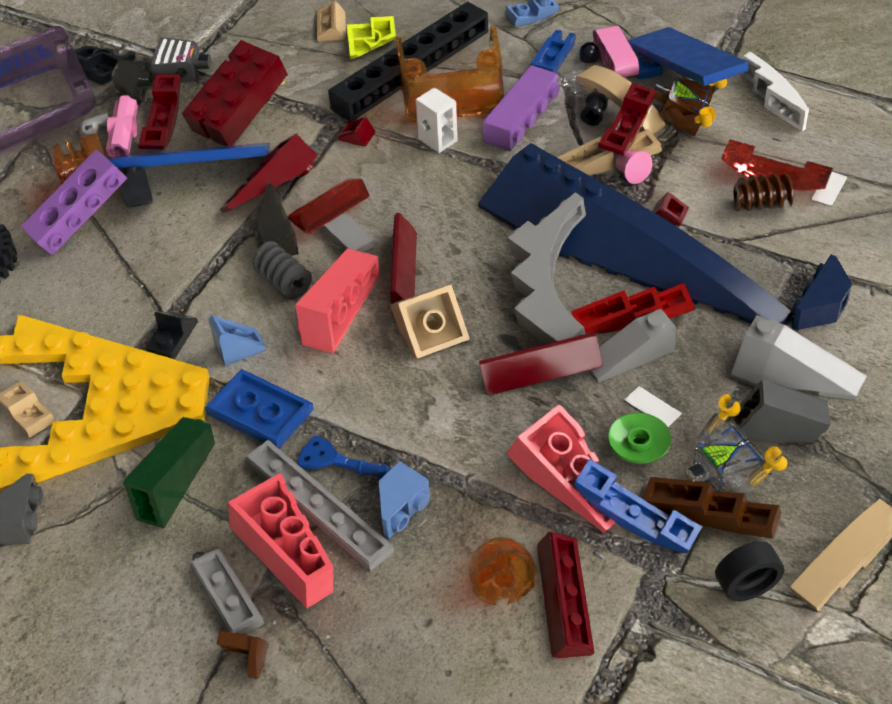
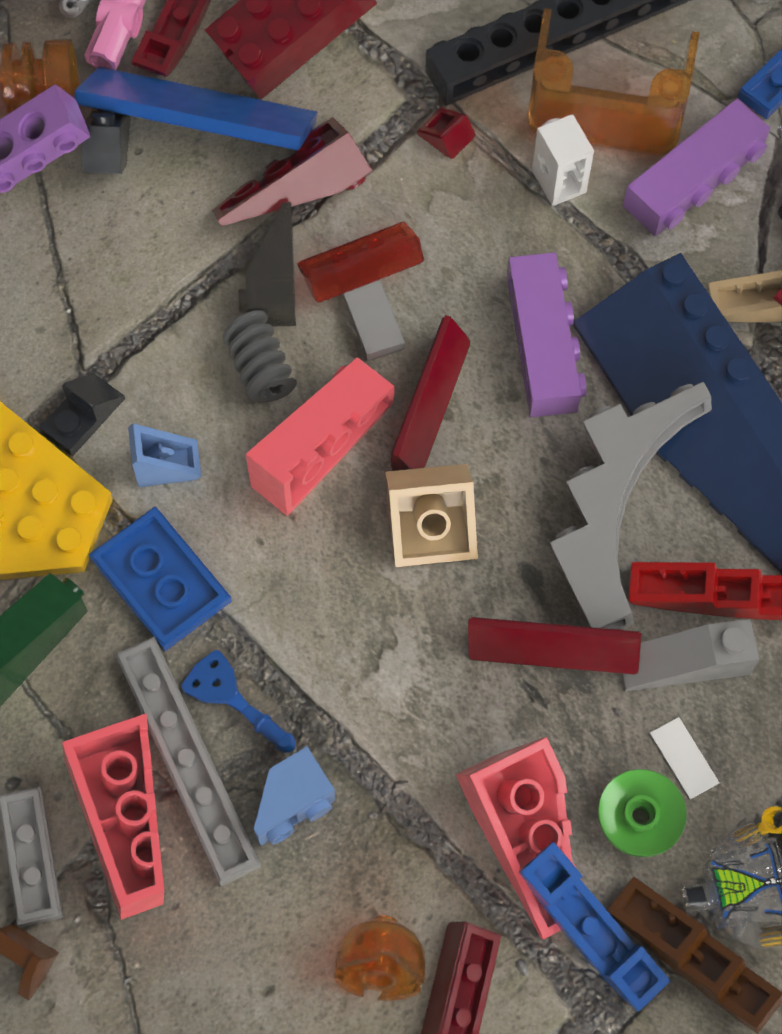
camera: 15 degrees right, 20 degrees up
(463, 211) = (544, 335): none -> medium lavender brick

